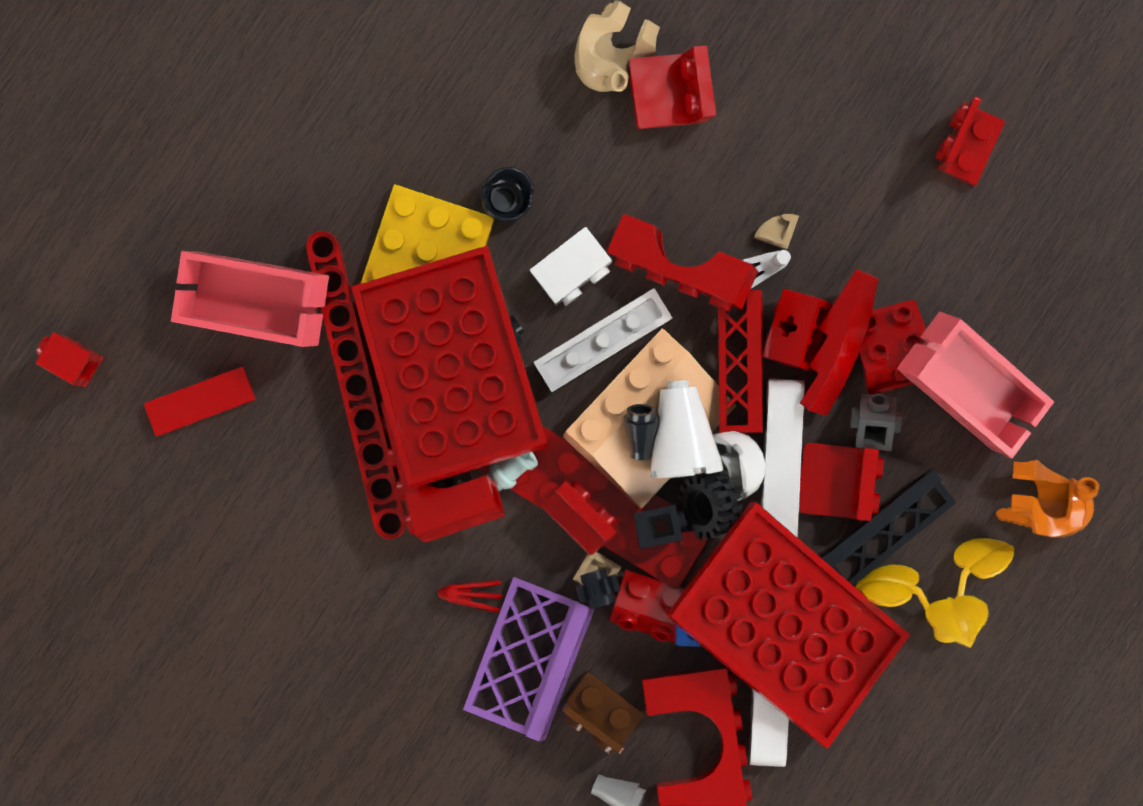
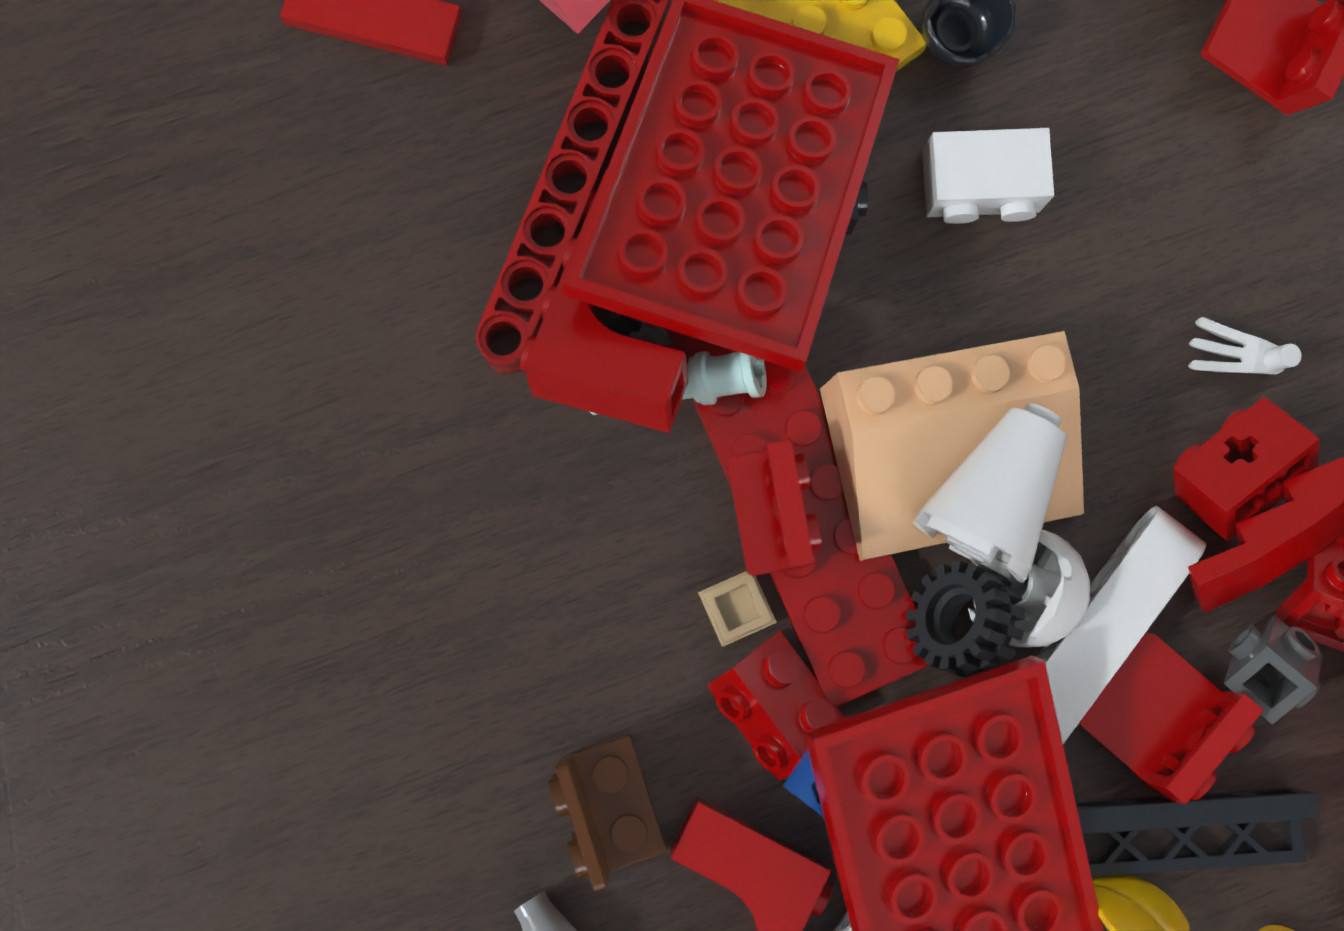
camera: 25 degrees right, 5 degrees down
(462, 594) = (533, 505): red piece -> none
(556, 673) = (587, 704): medium lavender fence -> none
(598, 588) = (726, 627): black gear -> none
(603, 340) = (962, 299): white plate -> none
(641, 428) = (947, 443): black cone -> none
(645, 529) = (899, 595): black brick -> none
(721, 278) = (1191, 318): red arch -> none
(754, 368) = (1158, 464): red fence -> none
(777, 230) = (1295, 319): tan tile -> none

